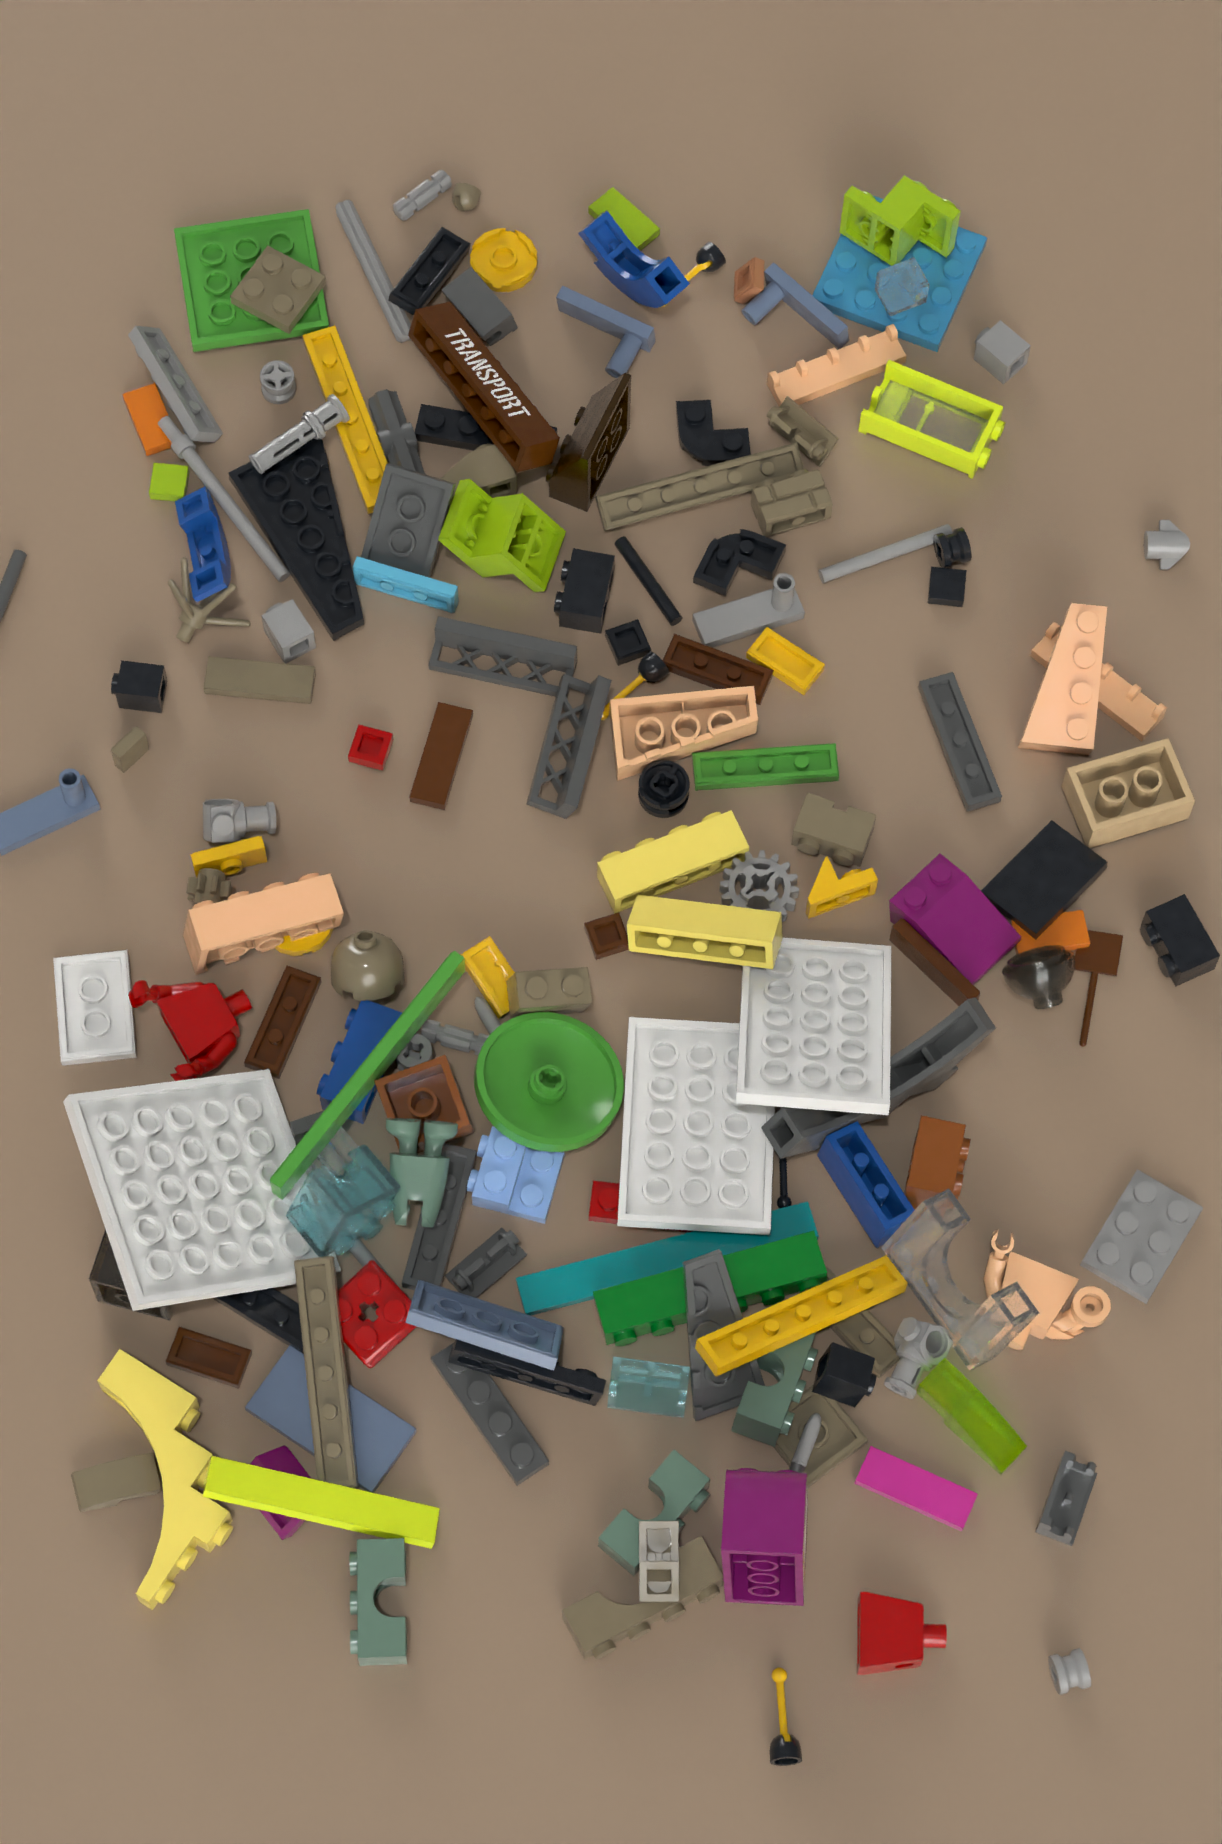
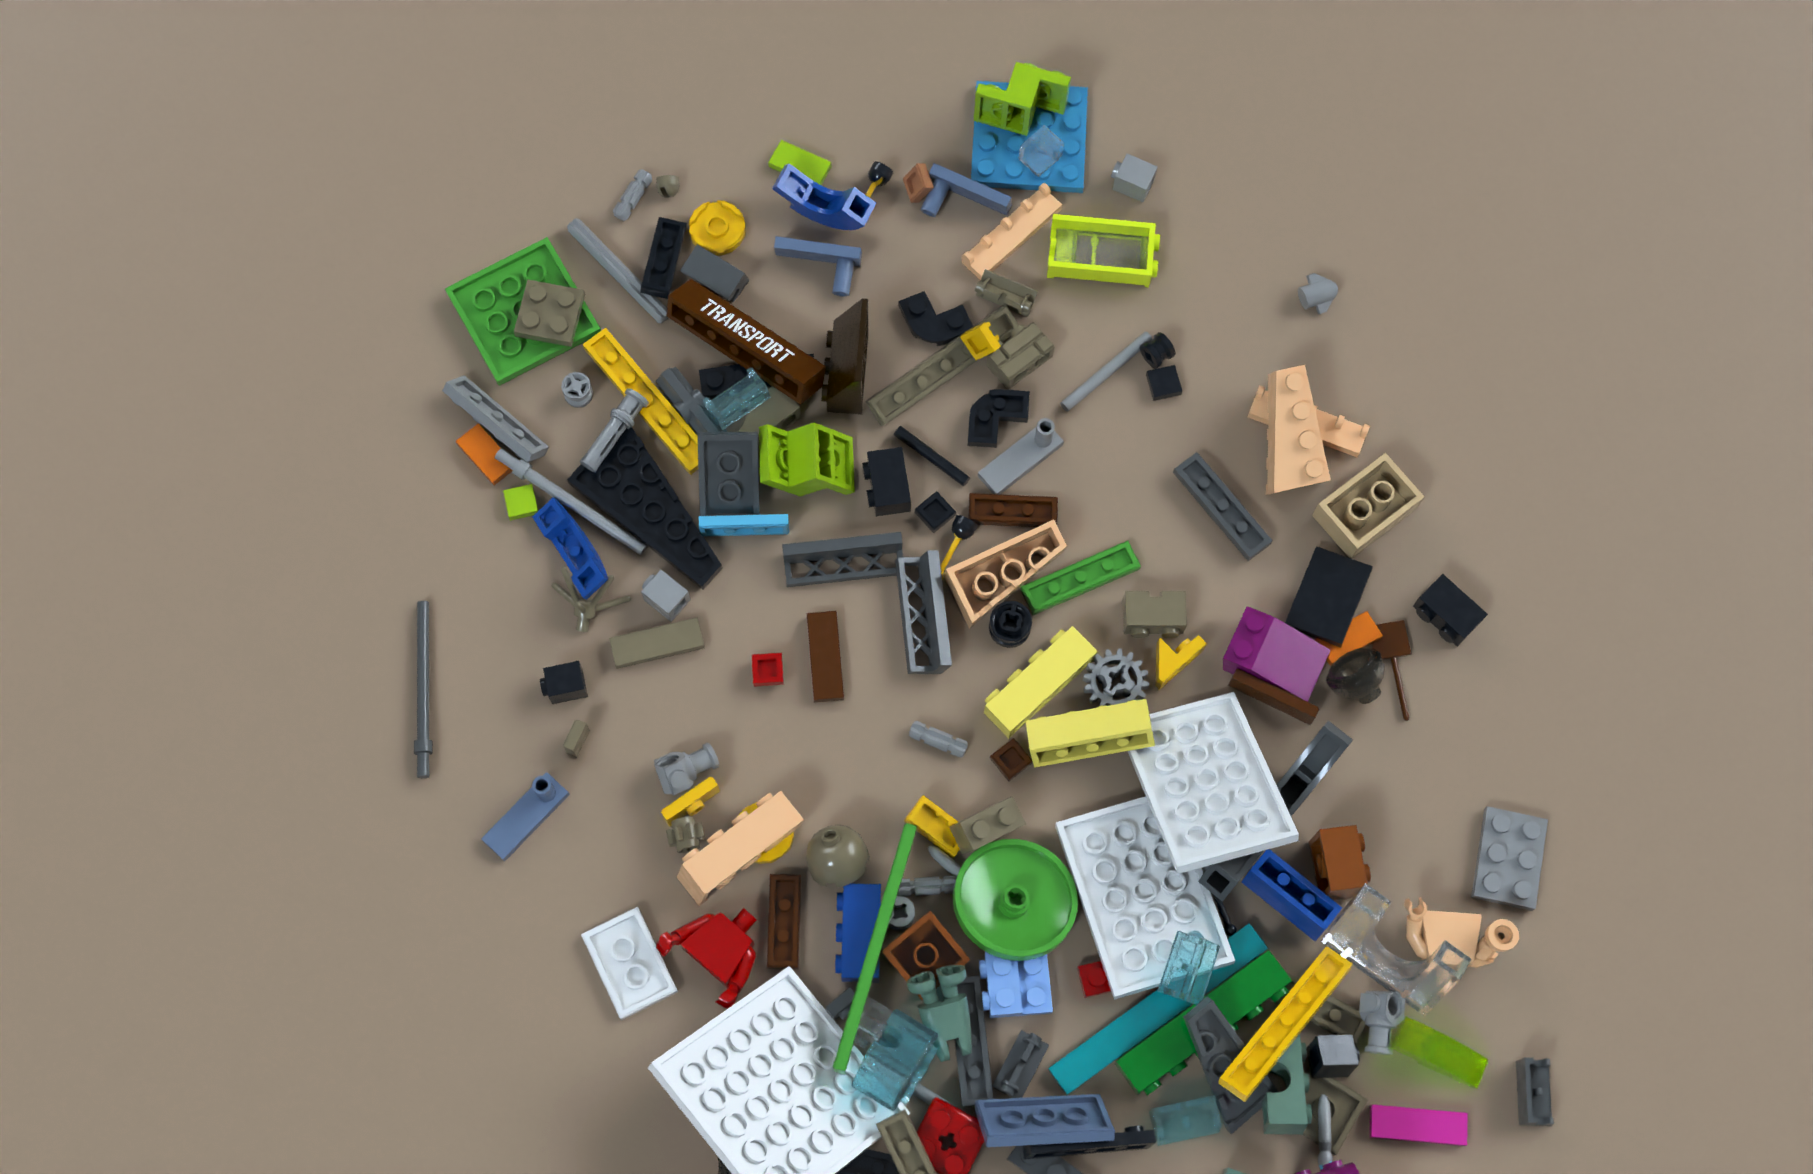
camera: 20 degrees left, 5 degrees up
(449, 446) = (737, 400): none -> clear light blue hinge
(533, 885) = (938, 739): none -> light grey axle
(713, 1214) = (1189, 968): none -> clear light blue hinge
(750, 470) = (980, 340): none -> yellow tile
(786, 659) = (1065, 485): yellow tile -> none

